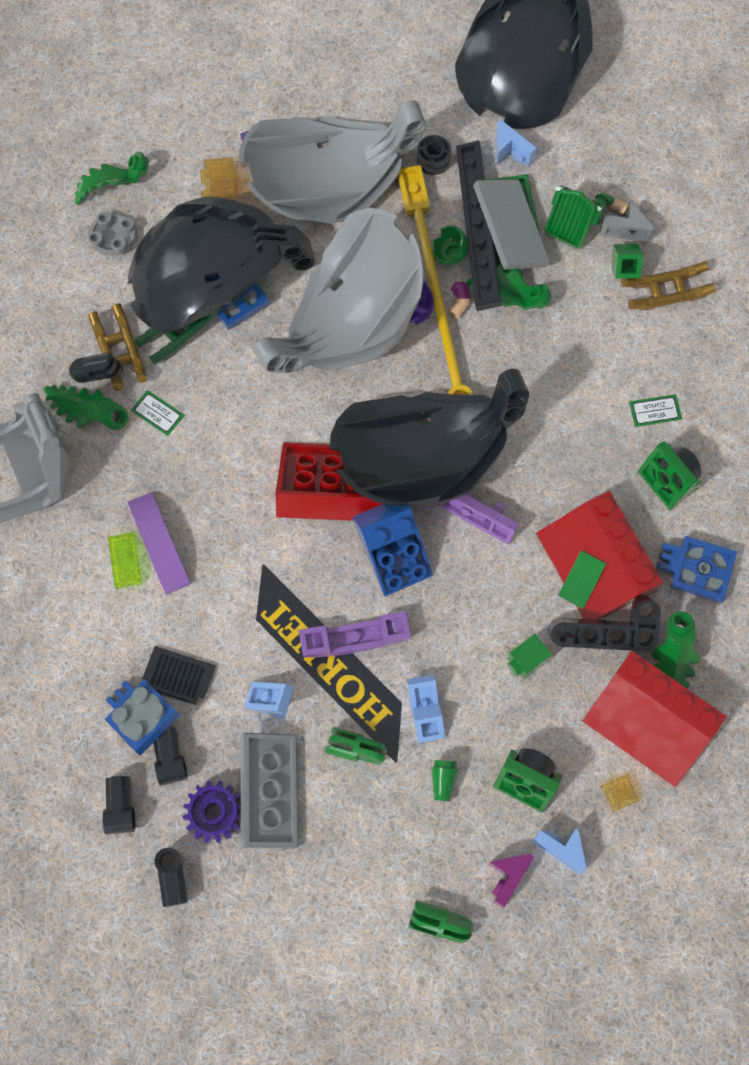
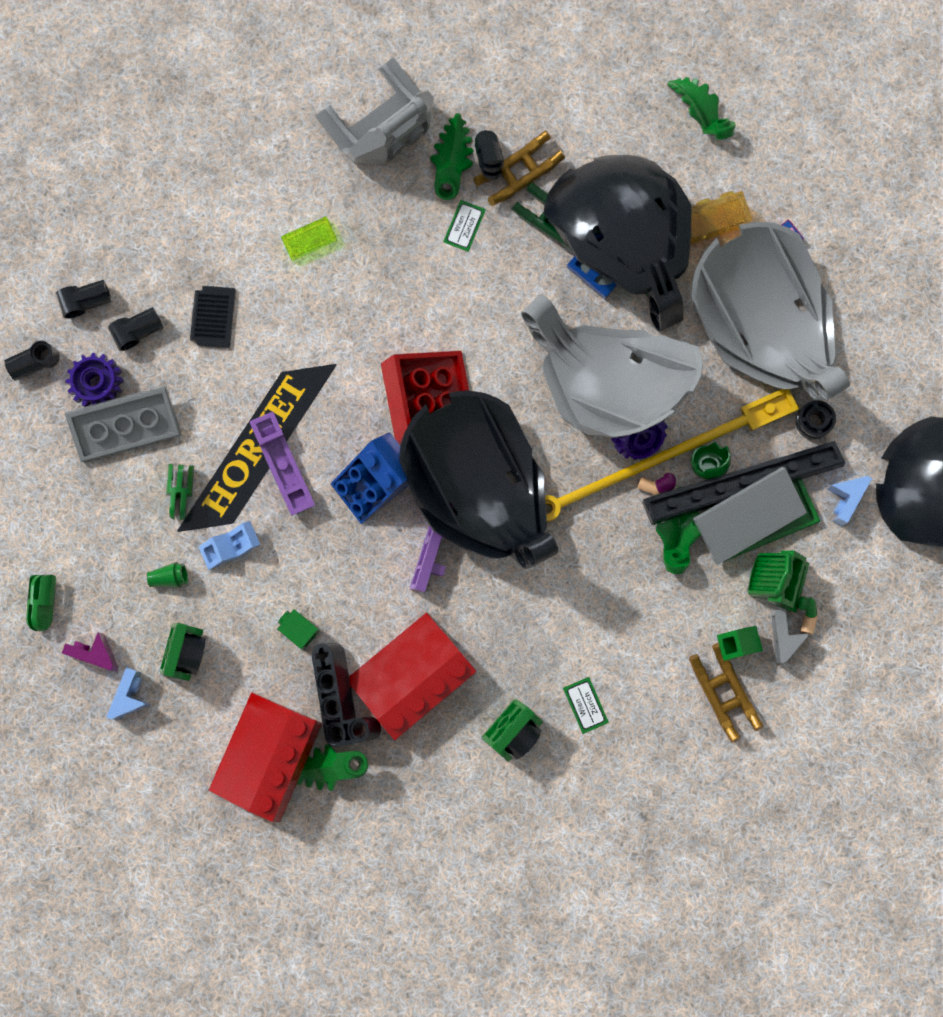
camera: 75 degrees right, 10 degrees up
(112, 233) = (641, 127): light grey dish -> none
(140, 715) = (164, 292): piece -> none
(158, 543) = (332, 262): medium lavender slope -> none
(269, 698) = (206, 403): light blue slope -> none
(582, 579) = (385, 664): green sticker -> none
(619, 793) = (191, 739): clear yellow tile -> none
(698, 568) = (425, 776): blue piece -> none

